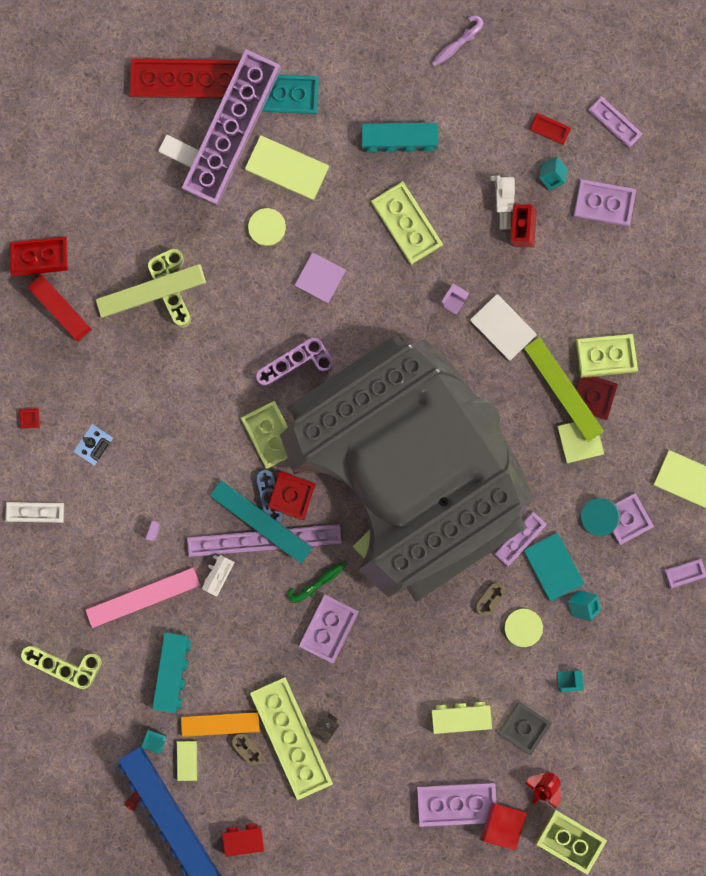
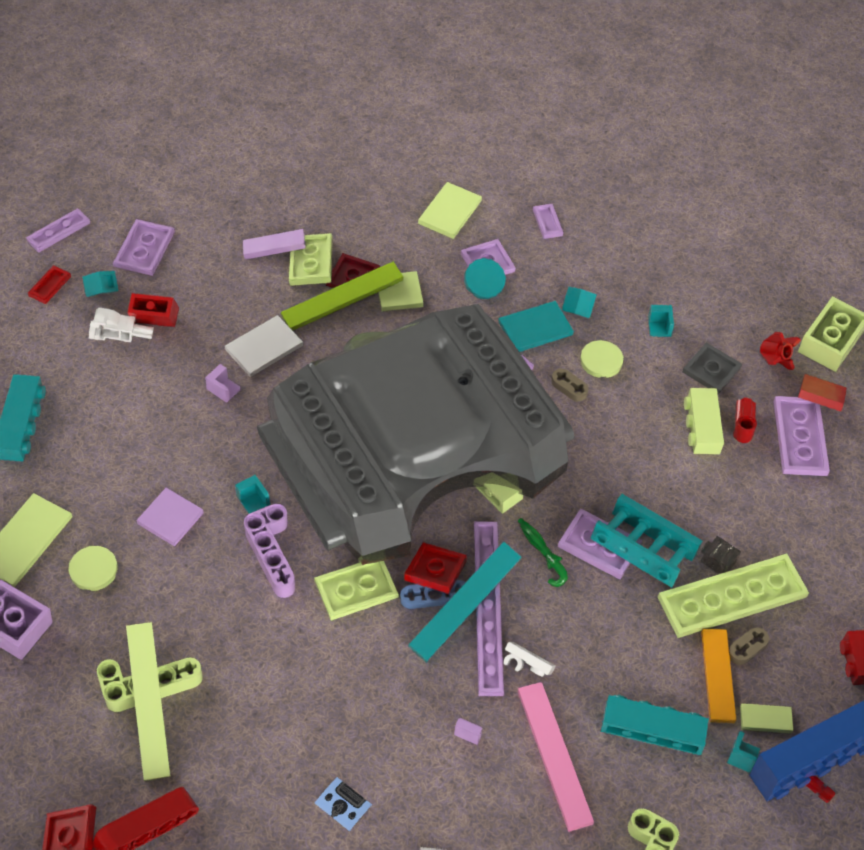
camera: 90 degrees left, 30 degrees down
(344, 341) = (252, 494): none -> teal panel
(350, 666) = (654, 526): none -> teal fence
(406, 223) = (123, 424): yellowish green tile -> none
(470, 755) = (745, 420): none -> red piece
(618, 320) = (274, 244): none -> lavender tile

